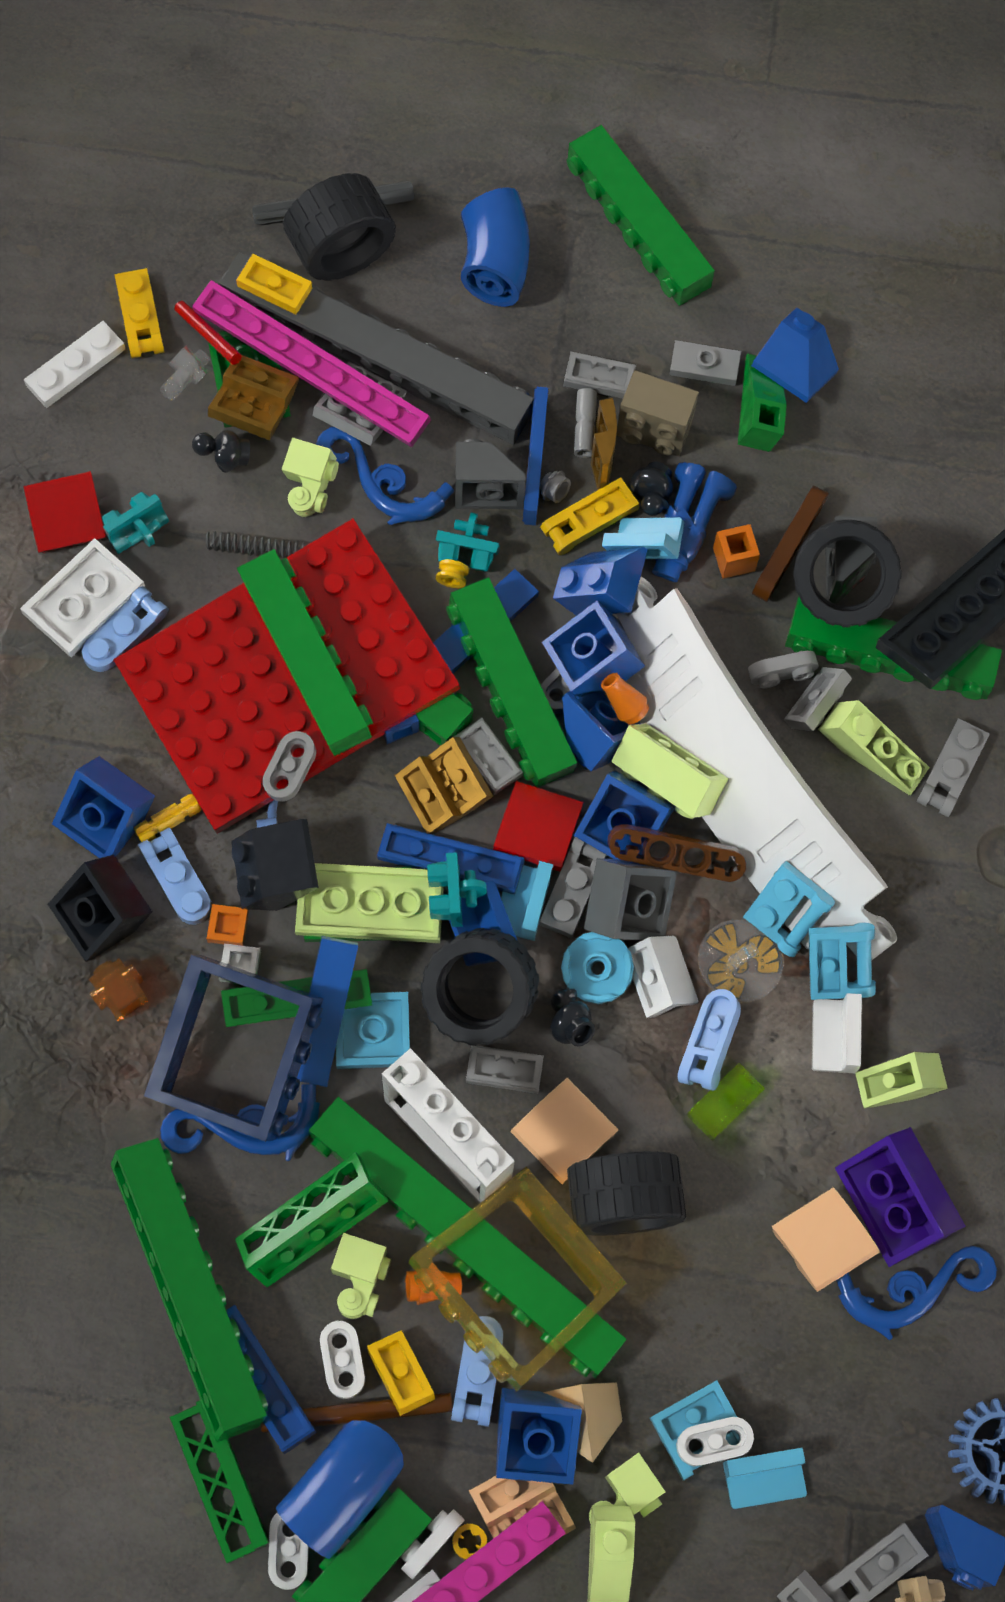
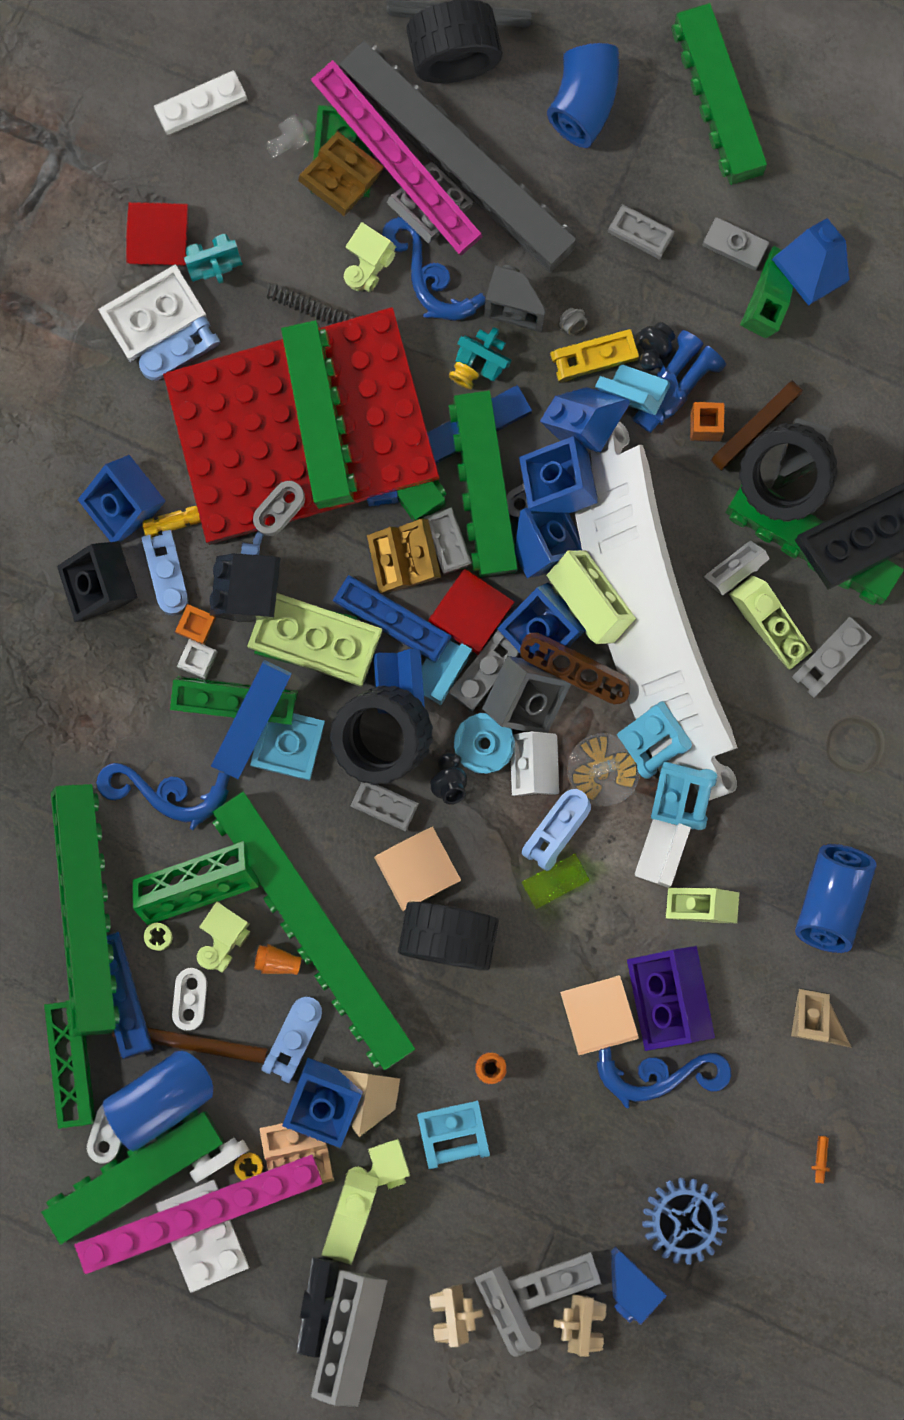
camera: 20 degrees right, 10 degrees up
(117, 988) = (93, 652): clear orange brick -> none
(139, 312) = (266, 70): yellow plate -> none
(180, 1030) = (131, 703): dark blue window -> none
(208, 332) = (318, 105): red bar -> none
(227, 448) = (307, 213): black animal -> none
(272, 1299) = (168, 936): none -> yellowish green bush
(274, 284) = (384, 79): yellow plate -> none
(401, 1372) = (231, 1023): yellow plate -> none
(446, 1127) = (319, 844): white window -> none
(448, 874) = (377, 661): teal hips -> none
(535, 456) = (564, 289): blue tile -> none
(560, 1233) = (389, 958): clear yellow windscreen -> none
(585, 419) = (617, 266): light grey piece -> none
(604, 442) = (623, 298): pearl gold slope -> none
(626, 700) = (572, 527): orange cone -> none
(656, 413) = (676, 282): dark tan brick -> none
(714, 1442) = (460, 1148): white plate -> none
(730, 1331) = (500, 1071): none -> orange cone
(765, 1478) = (493, 1186): medium azure panel -> none
(773, 670) = (704, 533): light grey plate -> none

